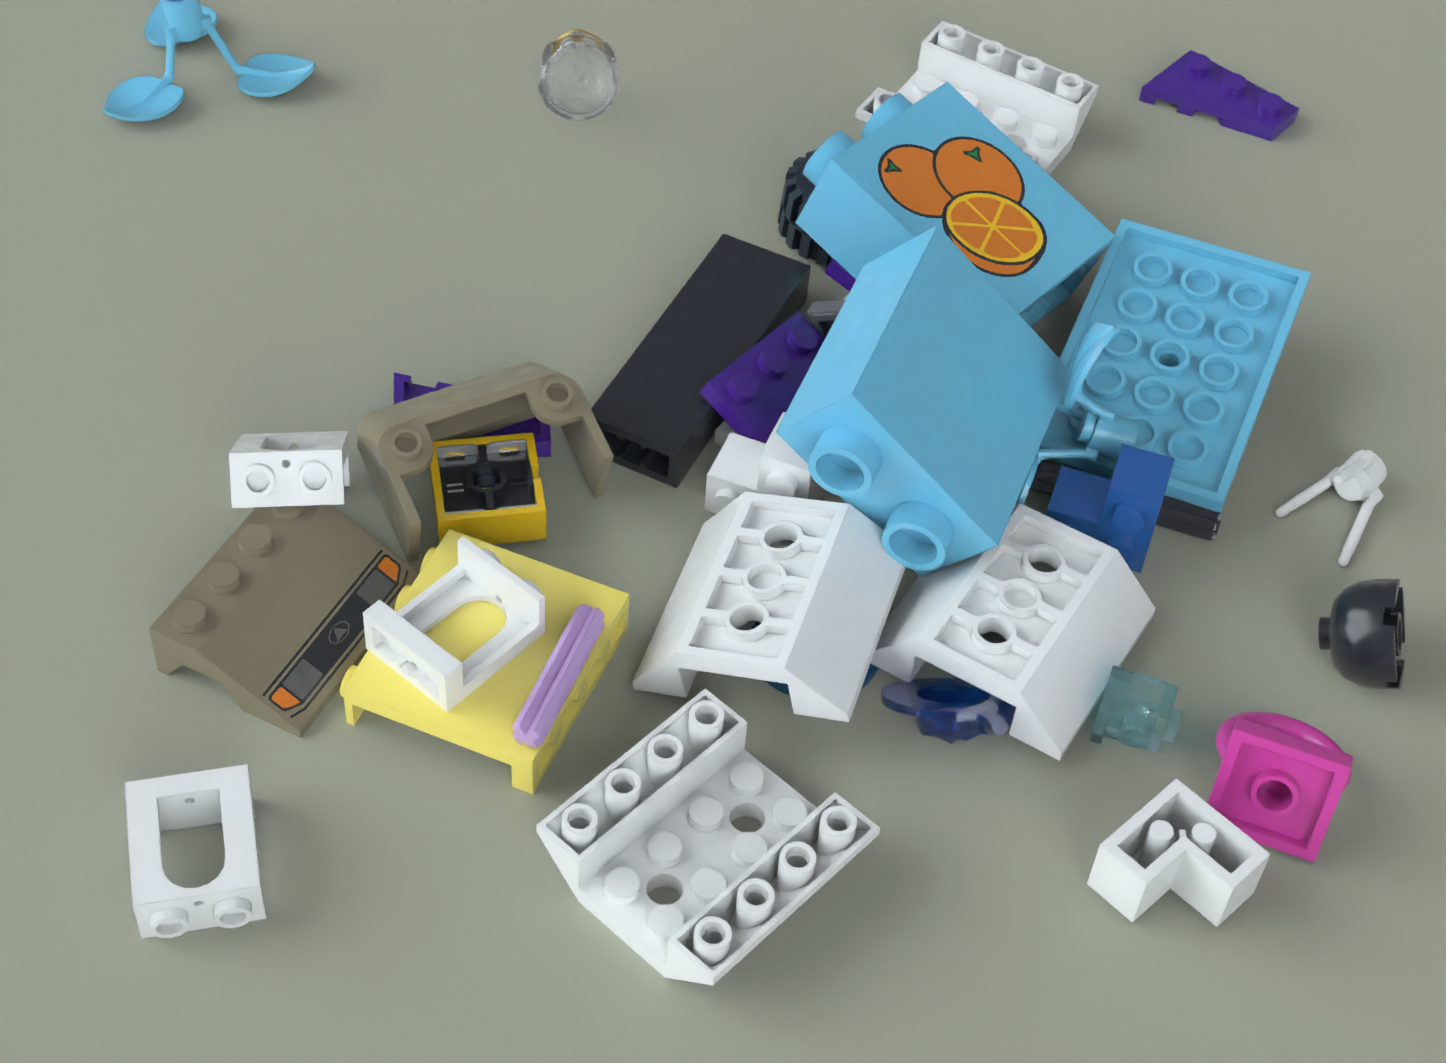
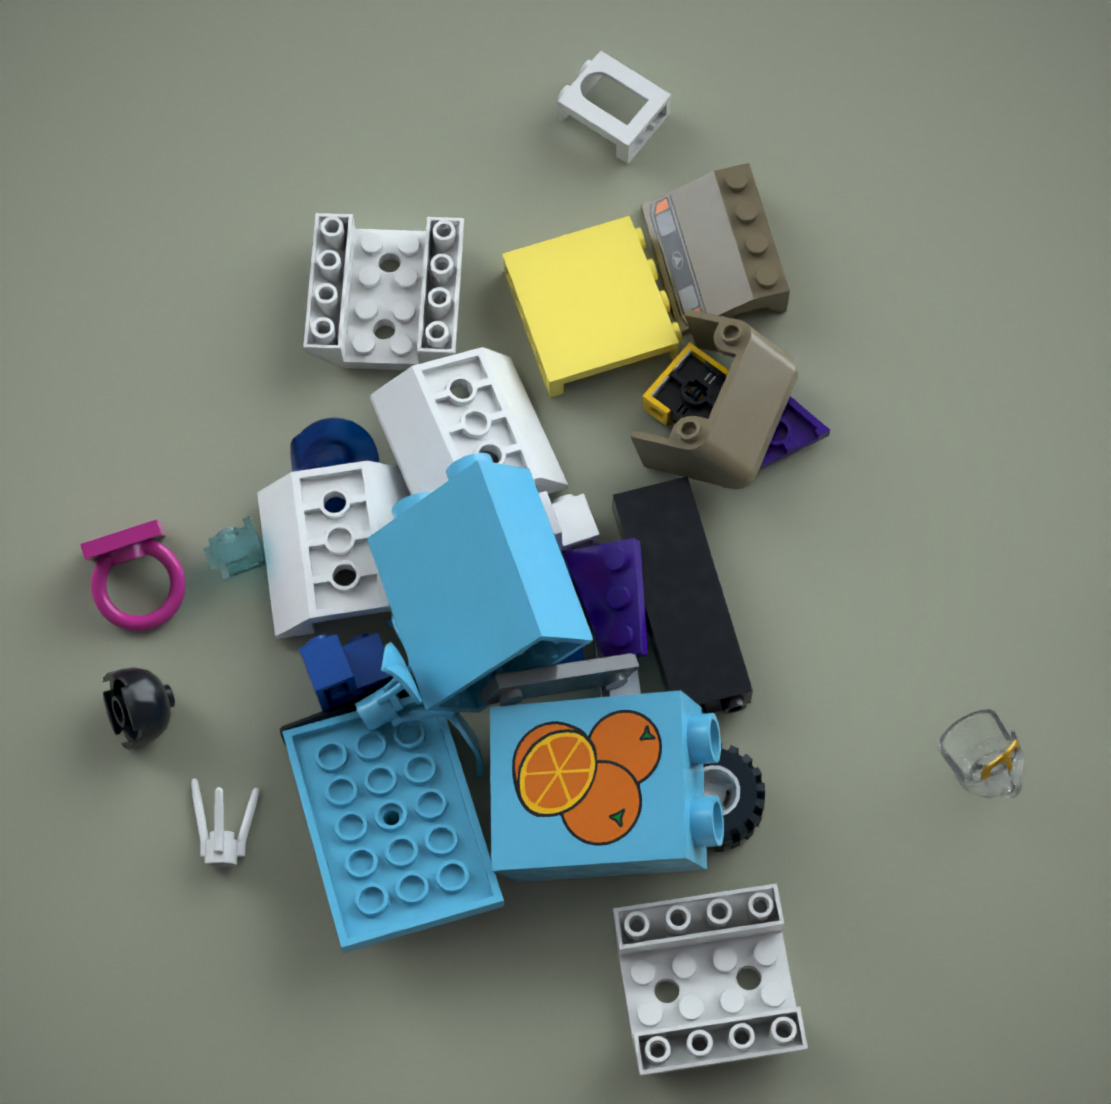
camera: 145 degrees right, 20 degrees up
(275, 475) = (821, 326): white panel -> none
(479, 576) = (605, 242): white panel -> none
(558, 676) = (531, 298): lavender axle -> none
(1179, 847) = (154, 472): white brick -> none

